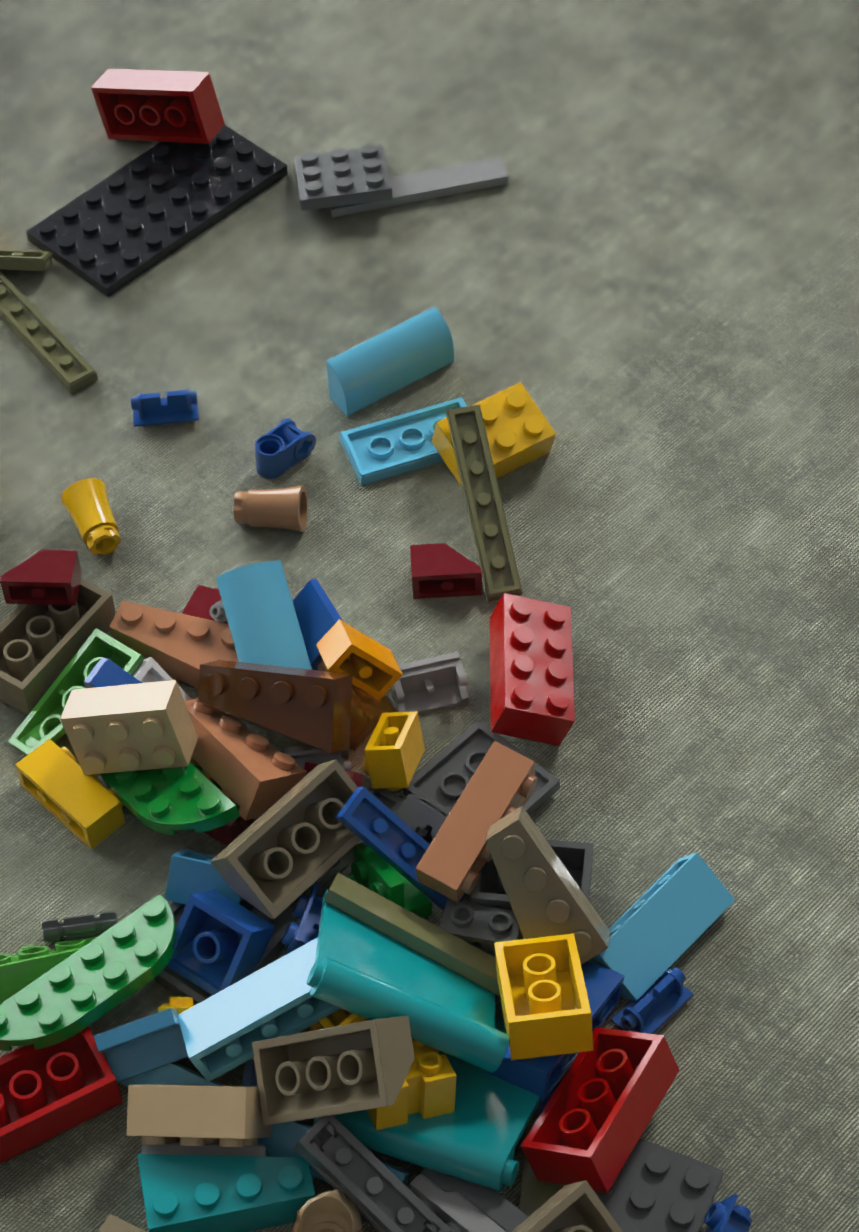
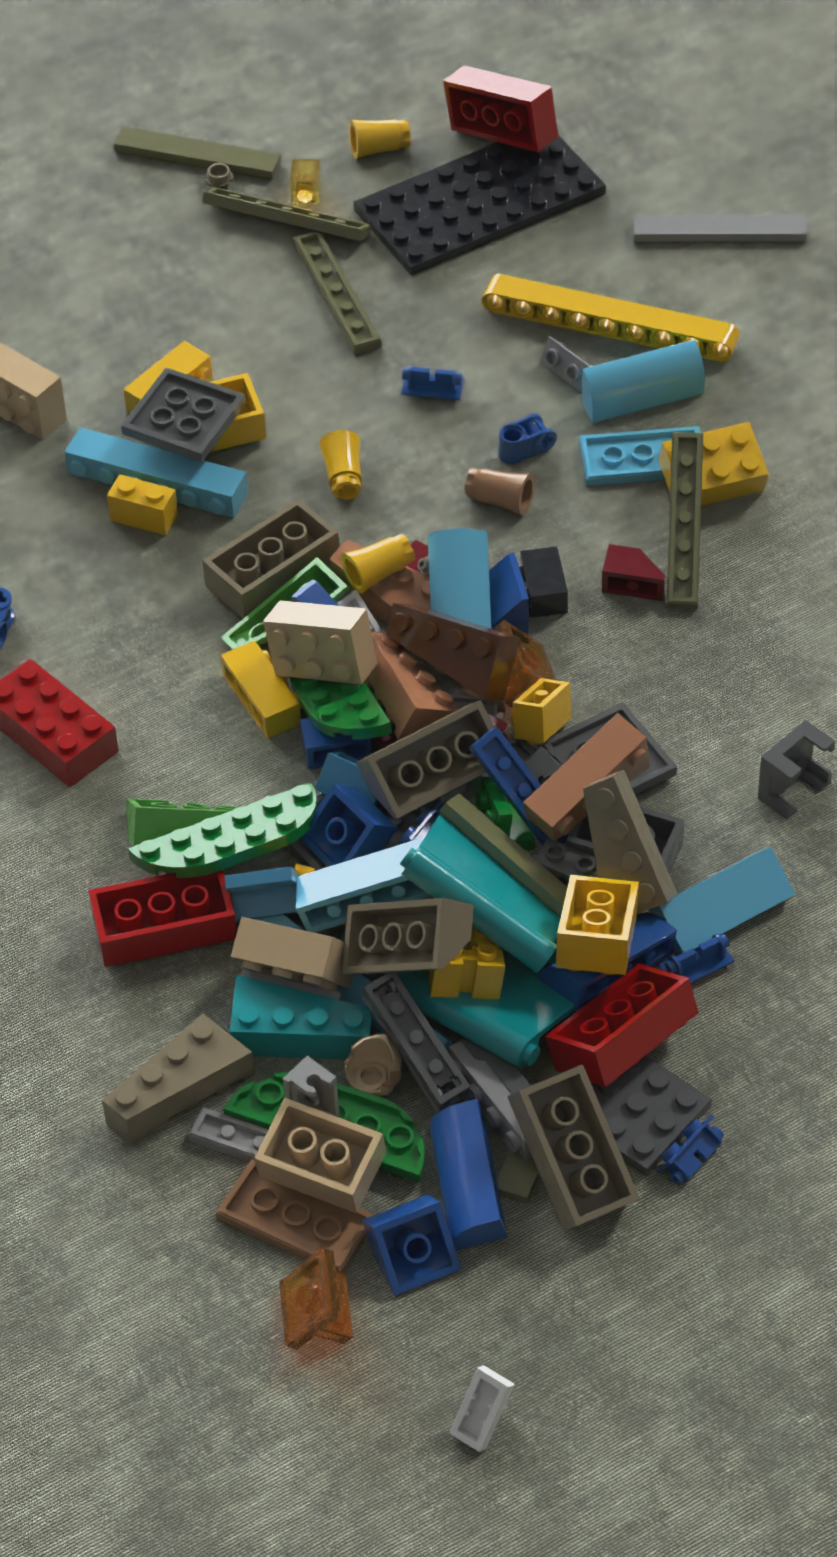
camera: 15 degrees right, 0 degrees up
(33, 159) = (378, 136): none -> yellow plant
(44, 579) = (283, 506): dark red slope -> none
(78, 926) = (236, 795): dark grey axle -> none
(157, 848) = (318, 745): none -> blue slope
(166, 620) = (376, 562): none -> yellow plant
(301, 358) = (563, 363): none -> light grey hinge
(330, 300) = (608, 316): none -> yellow beam
(342, 177) = (652, 206): dark grey plate -> none
(352, 597) = (544, 581): none -> black brick
(355, 653) = (538, 631): light orange brick -> none
(431, 685) = (591, 664): light grey hinge -> none
(531, 669) = (681, 669): red brick -> none
(686, 752) = (790, 761): none -> dark grey panel

